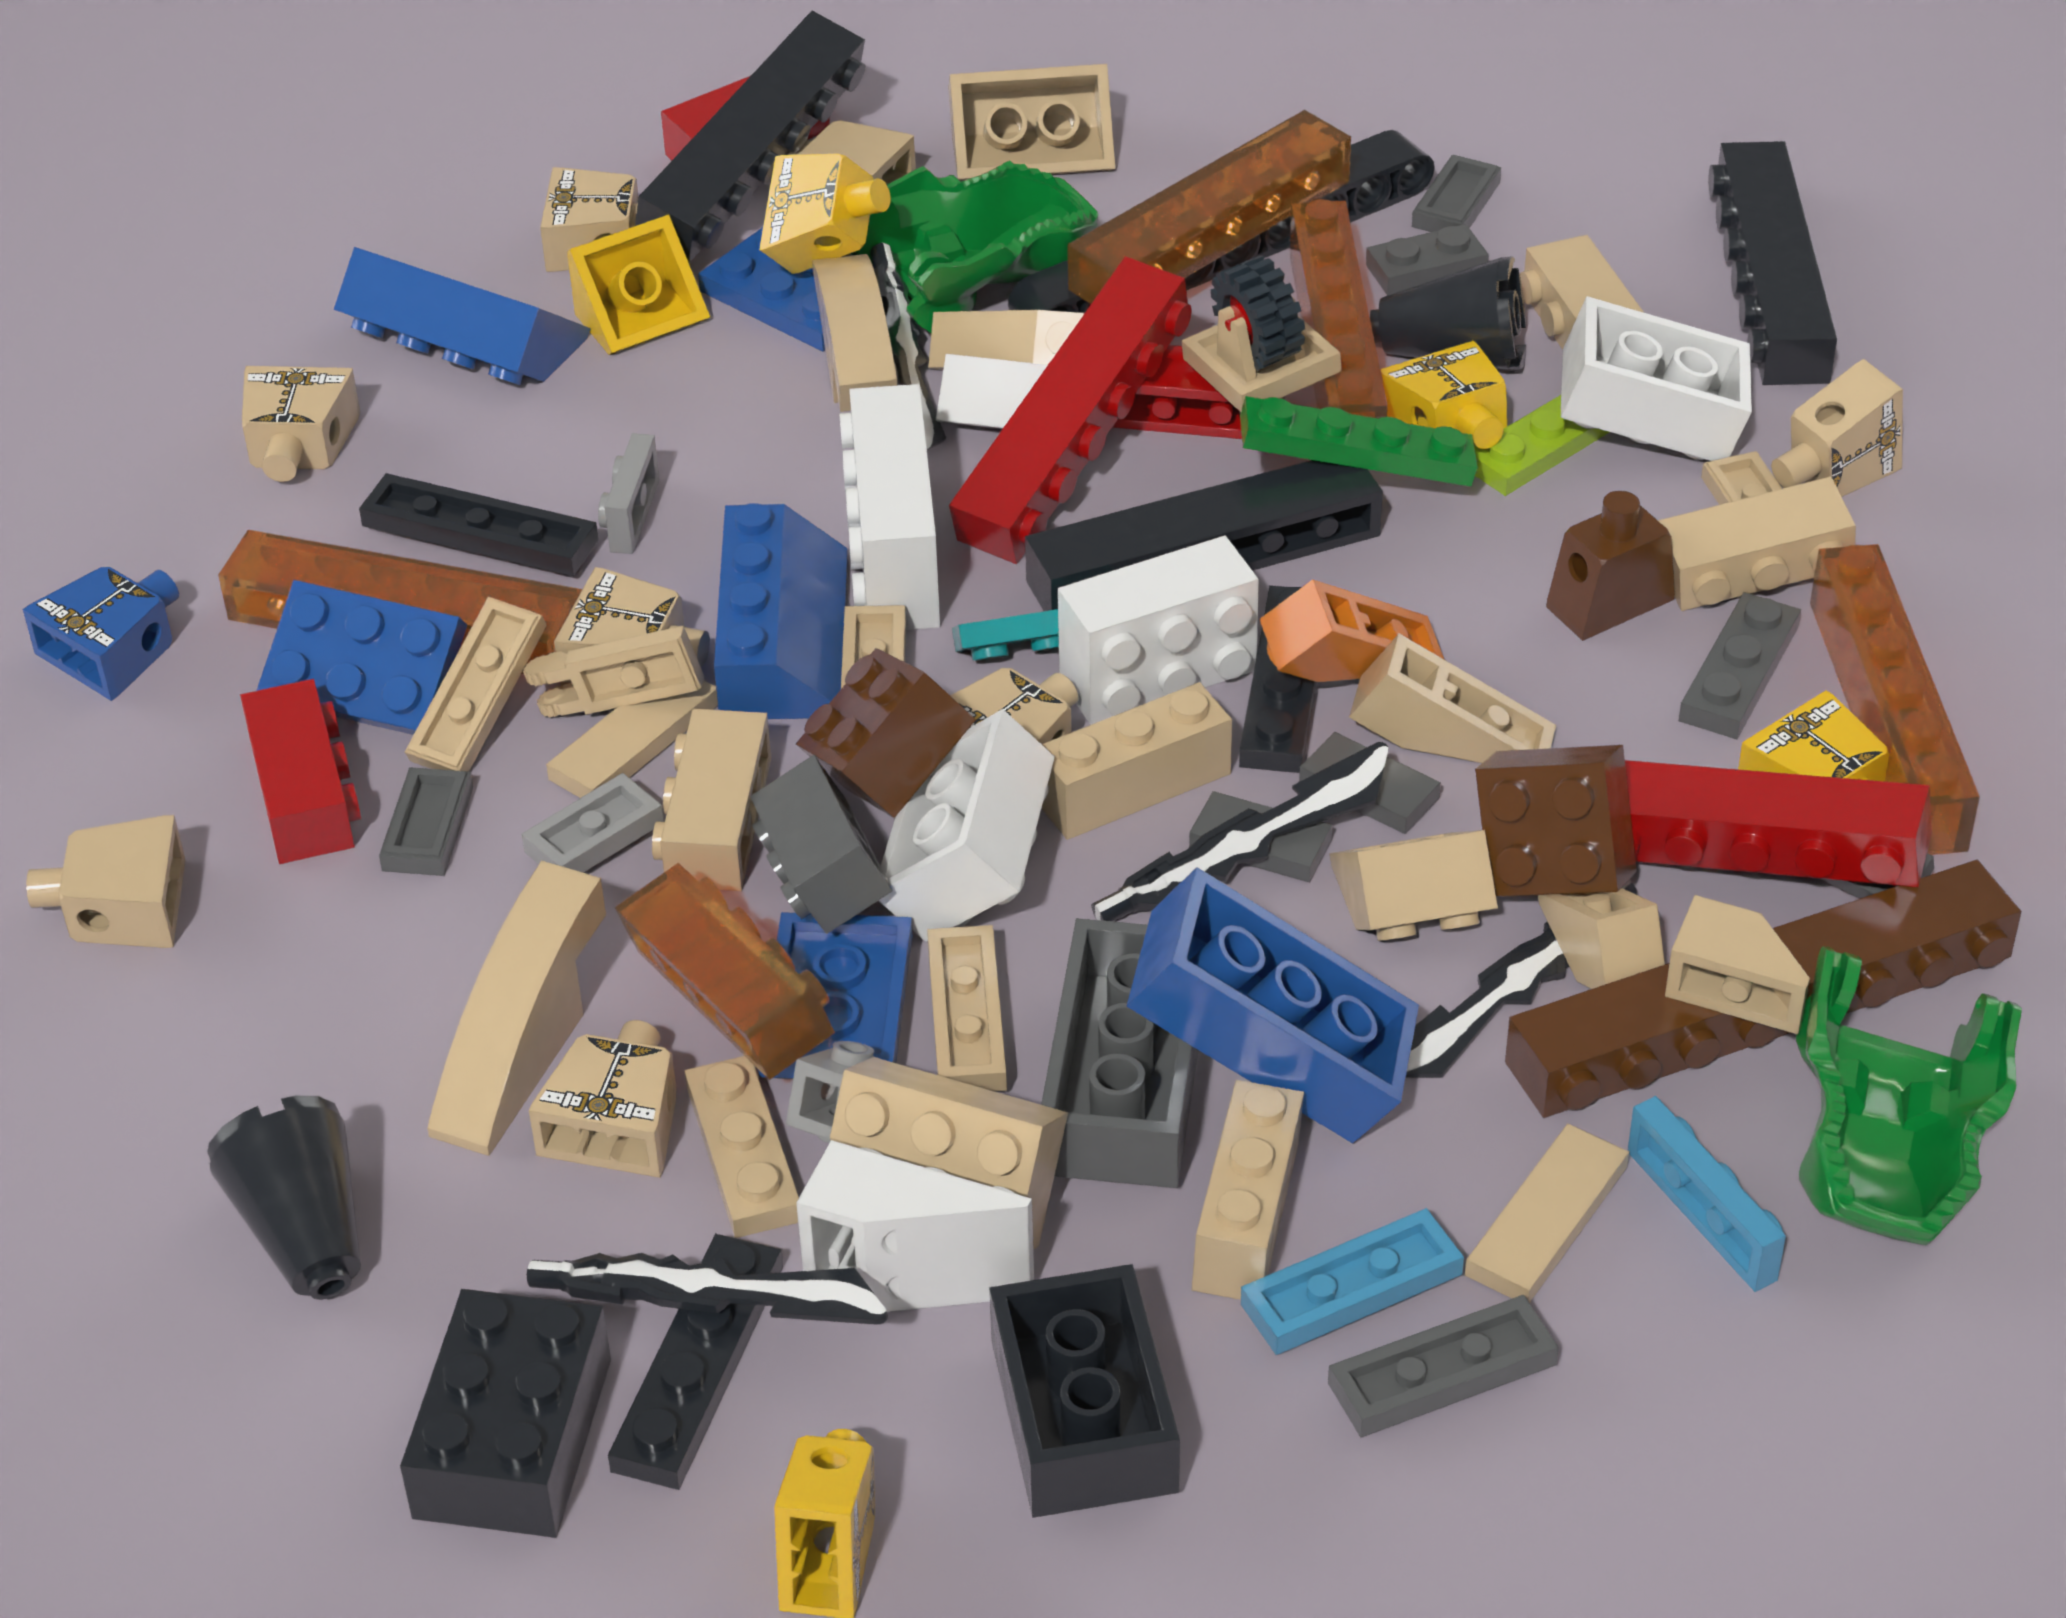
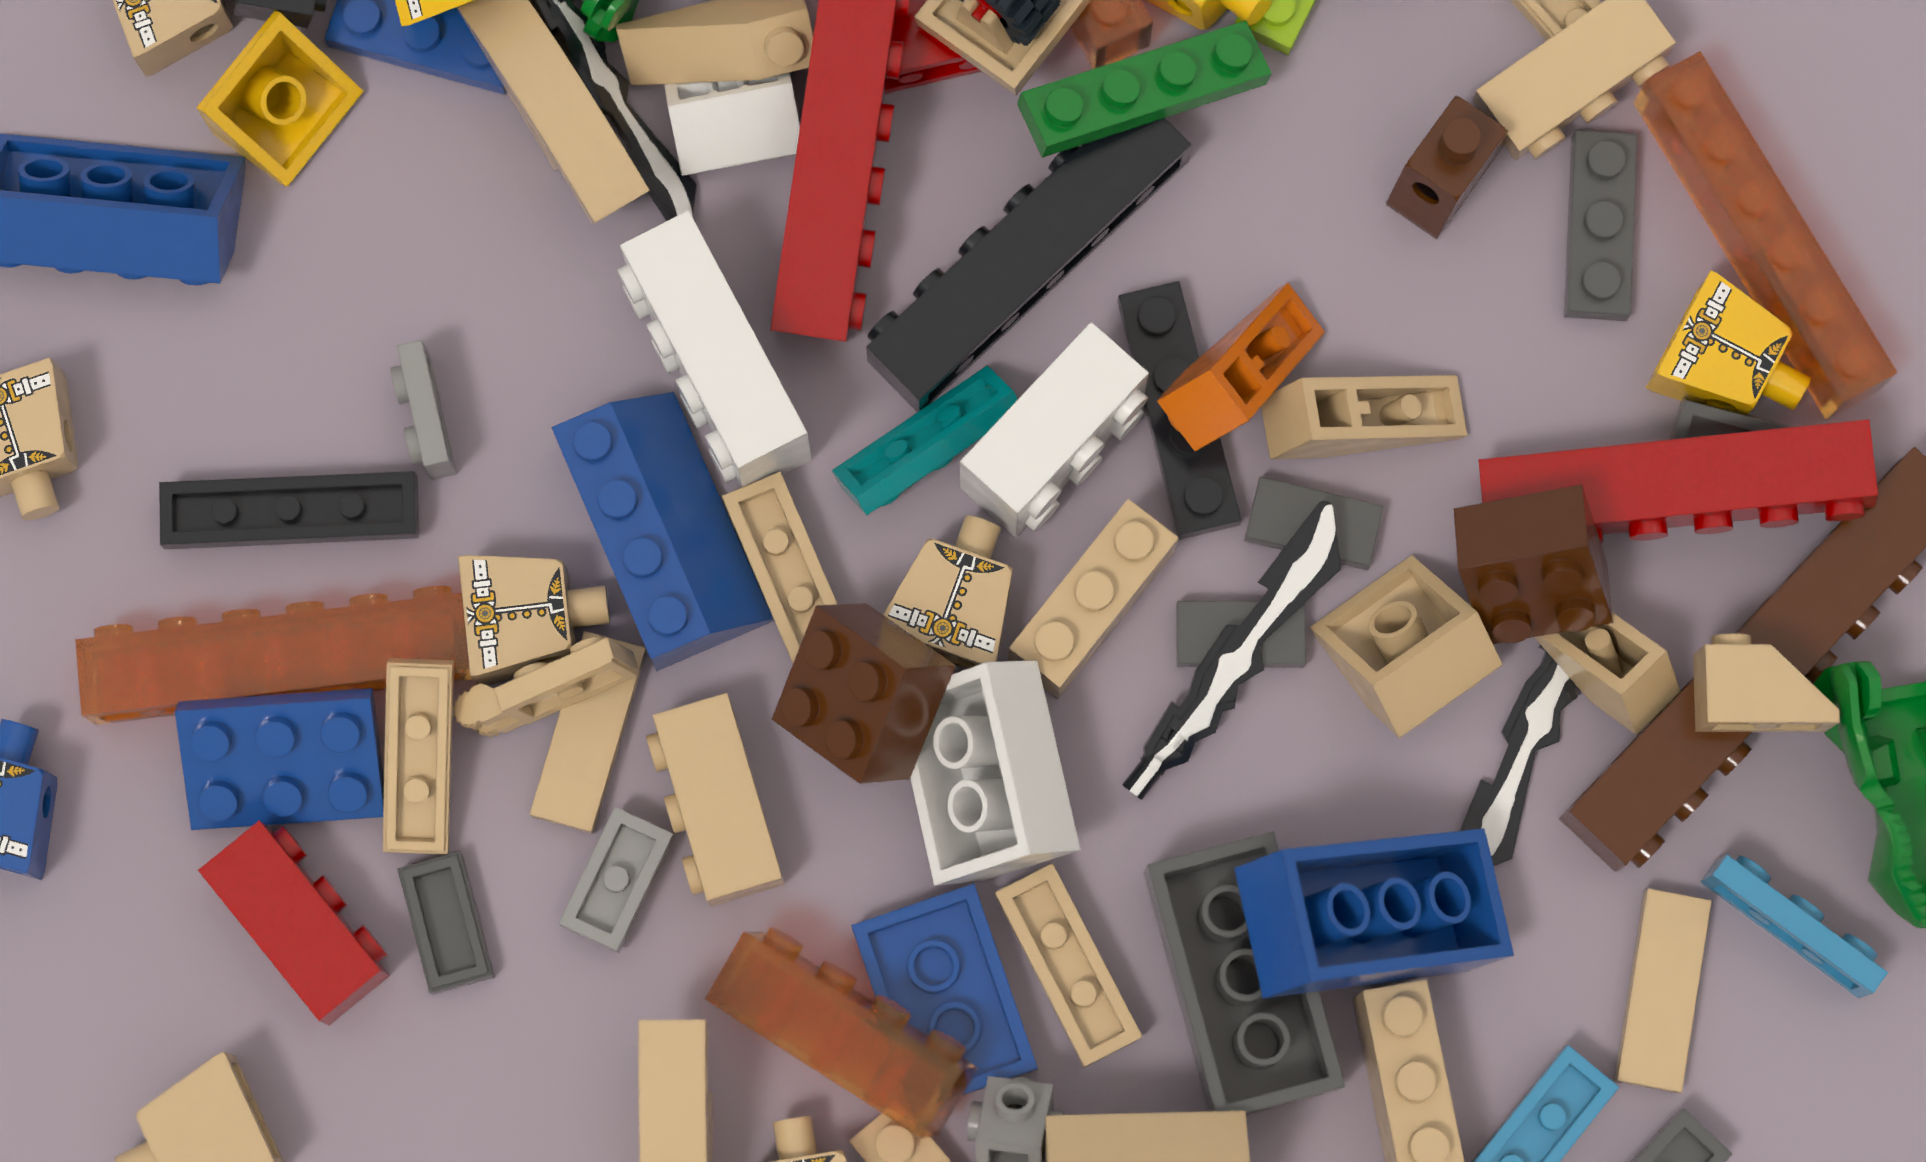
camera: 25 degrees left, 35 degrees up
(817, 846) = (859, 850): dark grey brick -> none

